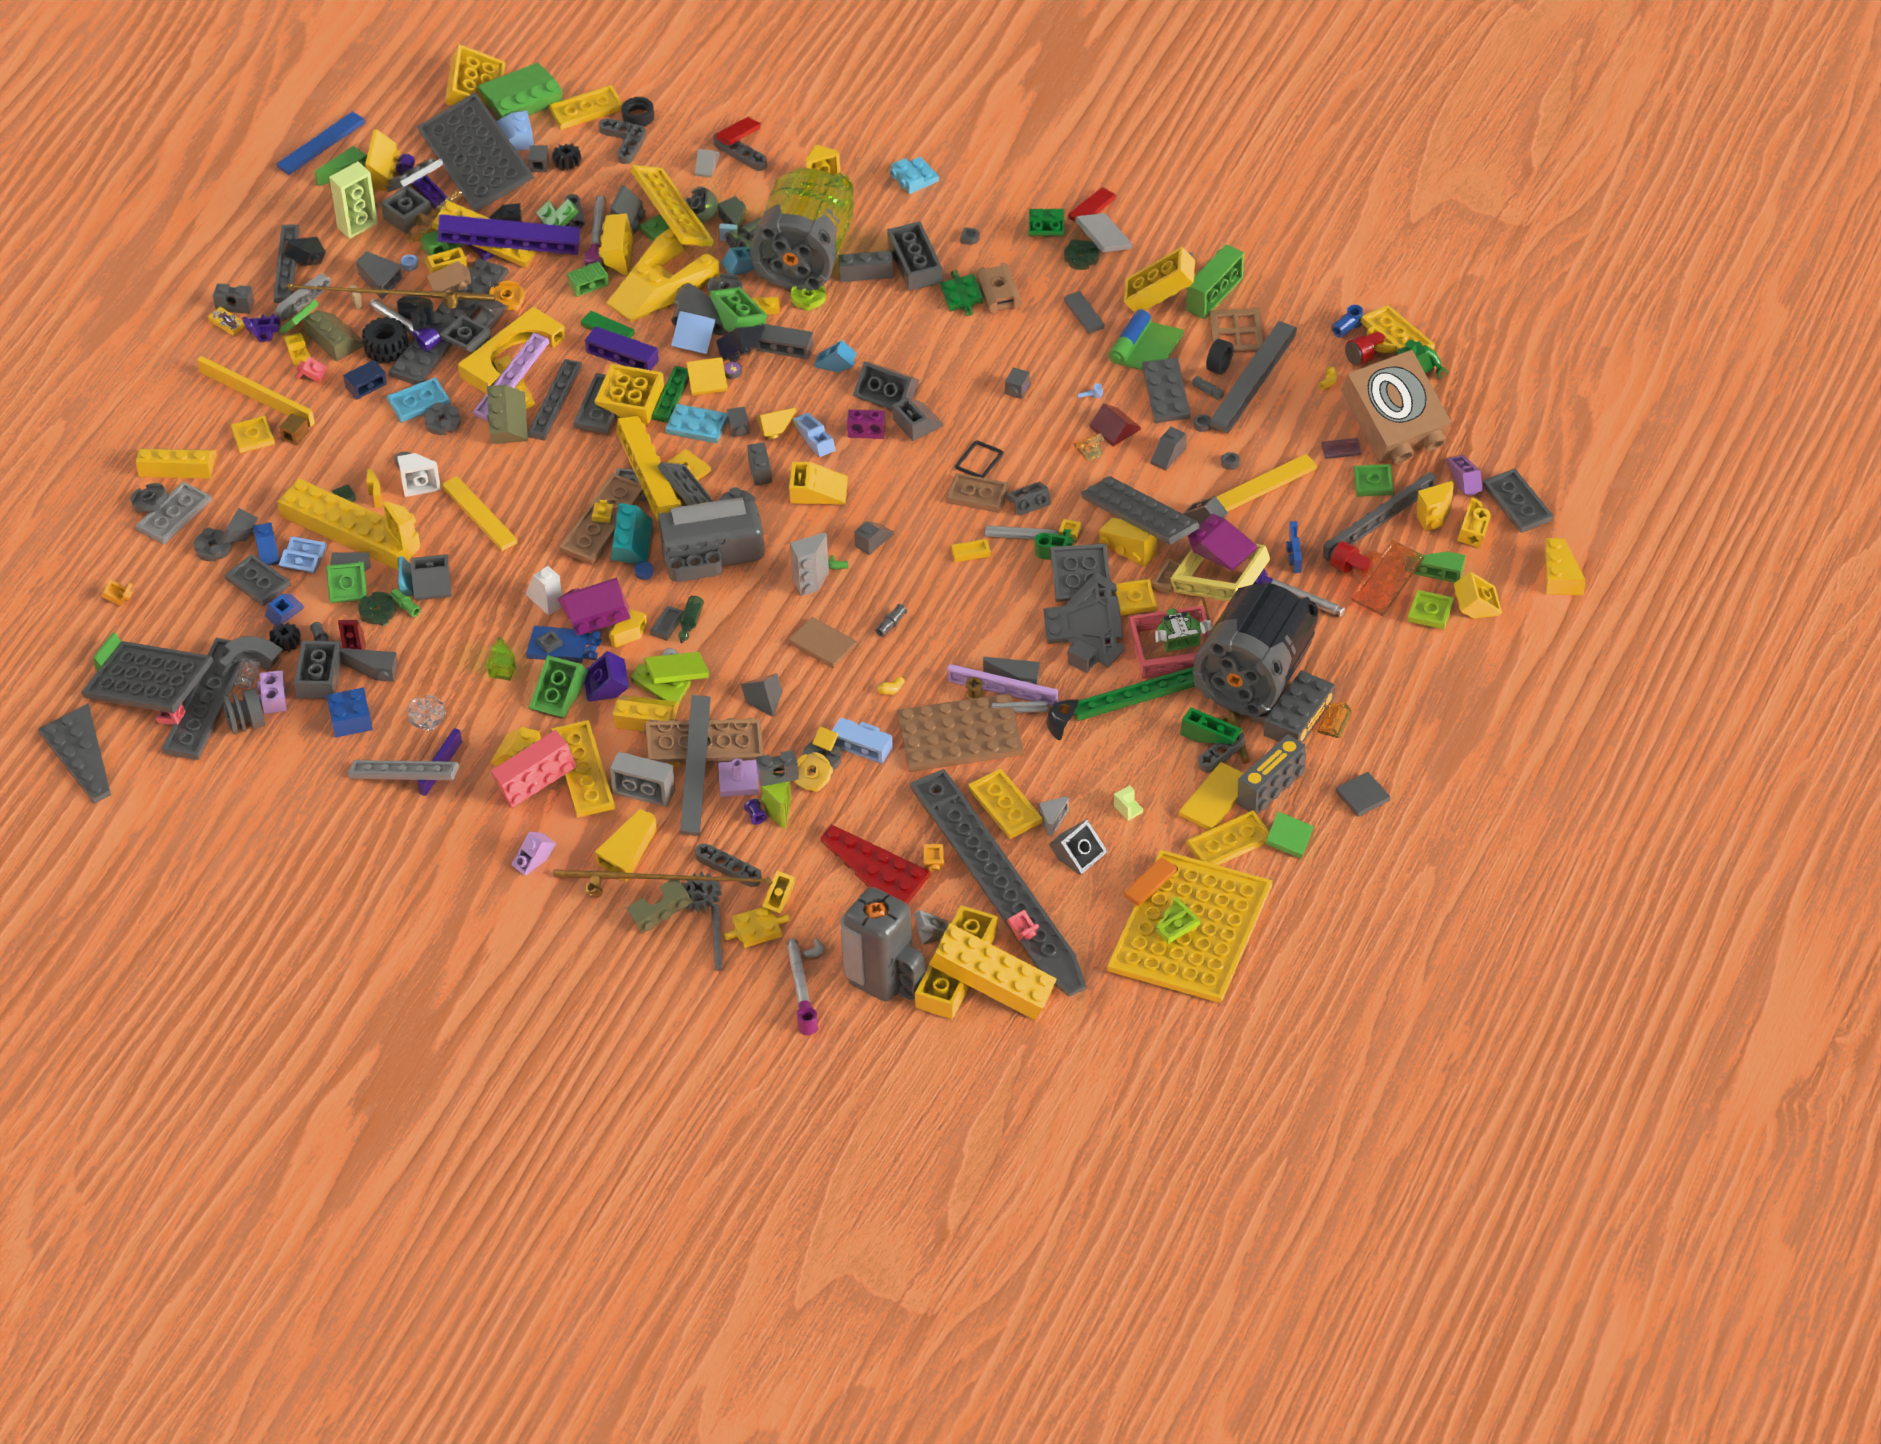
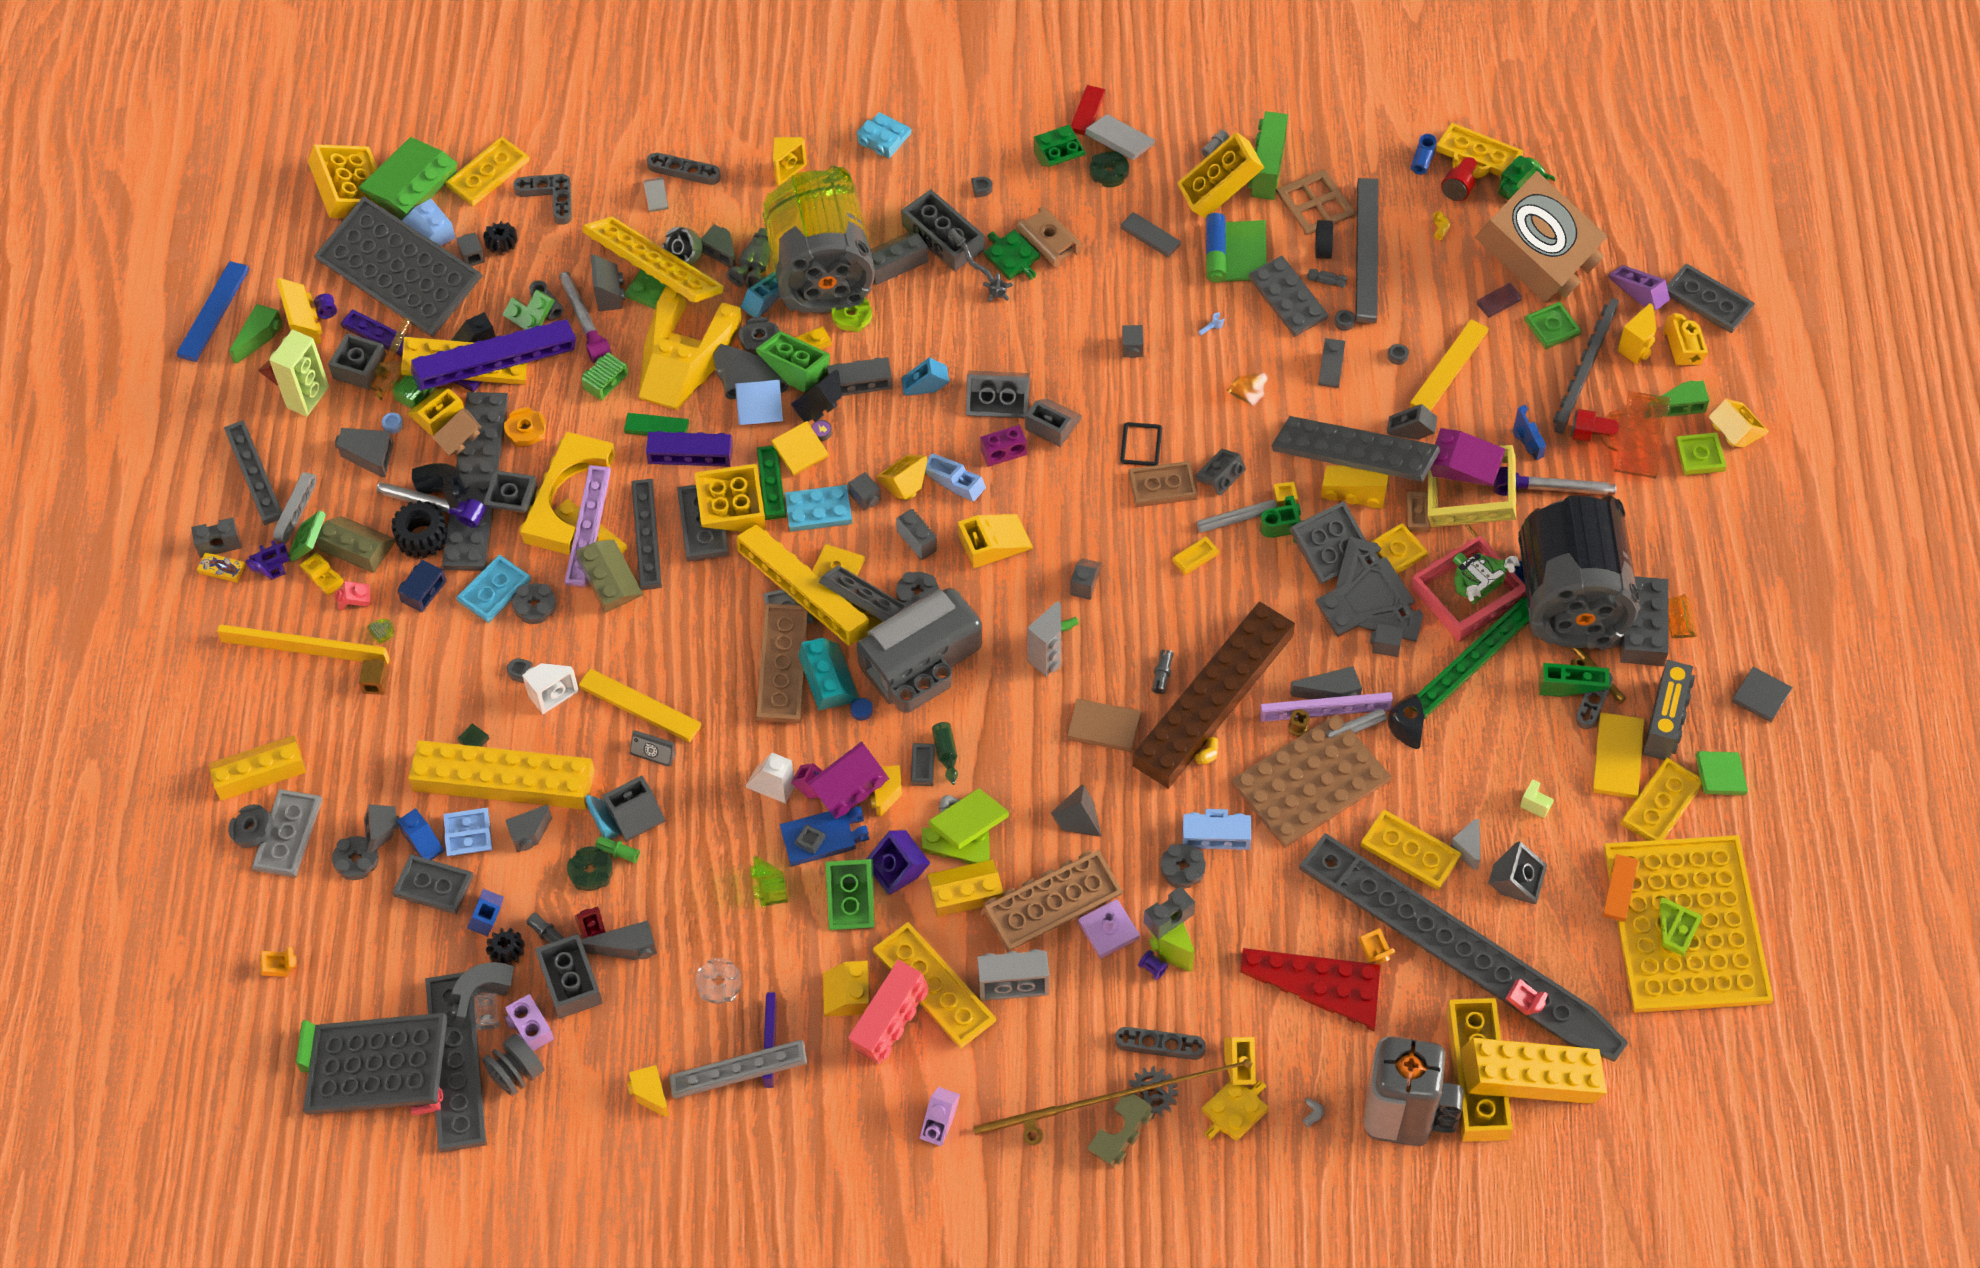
camera: 25 degrees left, 10 degrees up
(78, 749) = (332, 1183): dark grey wing -> none
(252, 434) = (326, 699): yellow tile -> none
(305, 250) = (270, 451): black slope -> none
(319, 401) = (381, 630): none -> clear neon green tile
(333, 763) = (648, 1089): none -> yellow slope
(346, 582) = (540, 850): bright green tile -> none
(349, 712) = (632, 1016): blue brick -> none
(356, 298) = (356, 487): tan tile -> none
(374, 488) = (505, 716): yellow slope -> none
(399, 523) = (572, 760): yellow slope -> none
(413, 174) = (345, 317): plate -> none
(450, 298) = (473, 455): pearl gold piece -> none
(470, 544) = (652, 748): none -> slope
(490, 312) = (520, 455): flat silver slope -> none
(602, 512) = (782, 657): yellow tile -> none
(617, 243) = (616, 323): yellow slope -> none
(627, 844) = (1037, 1069): yellow slope -> none
(634, 104) = (544, 148): black tyre -> none
(695, 765) = (1062, 936): dark grey tile -> none
(717, 938) = (1200, 1142): flat silver bar -> none
(724, 228) = (723, 267): light blue tile -> none
(738, 131) = (671, 146): red tile -> none
(806, 1014) = (1351, 1197): piece -> none
(820, 778) = (1199, 884): yellow plate -> none
(825, 739) = (1182, 847): yellow tile -> none
(920, 647) = (1213, 695): none -> reddish brown brick
(930, 927) = (1426, 1031): light grey slope -> none
(933, 311) = (996, 287): none -> dark grey piece
(1113, 424) = (1257, 354): dark red slope -> none
(1561, 569) = (1799, 361): yellow wedge -> none

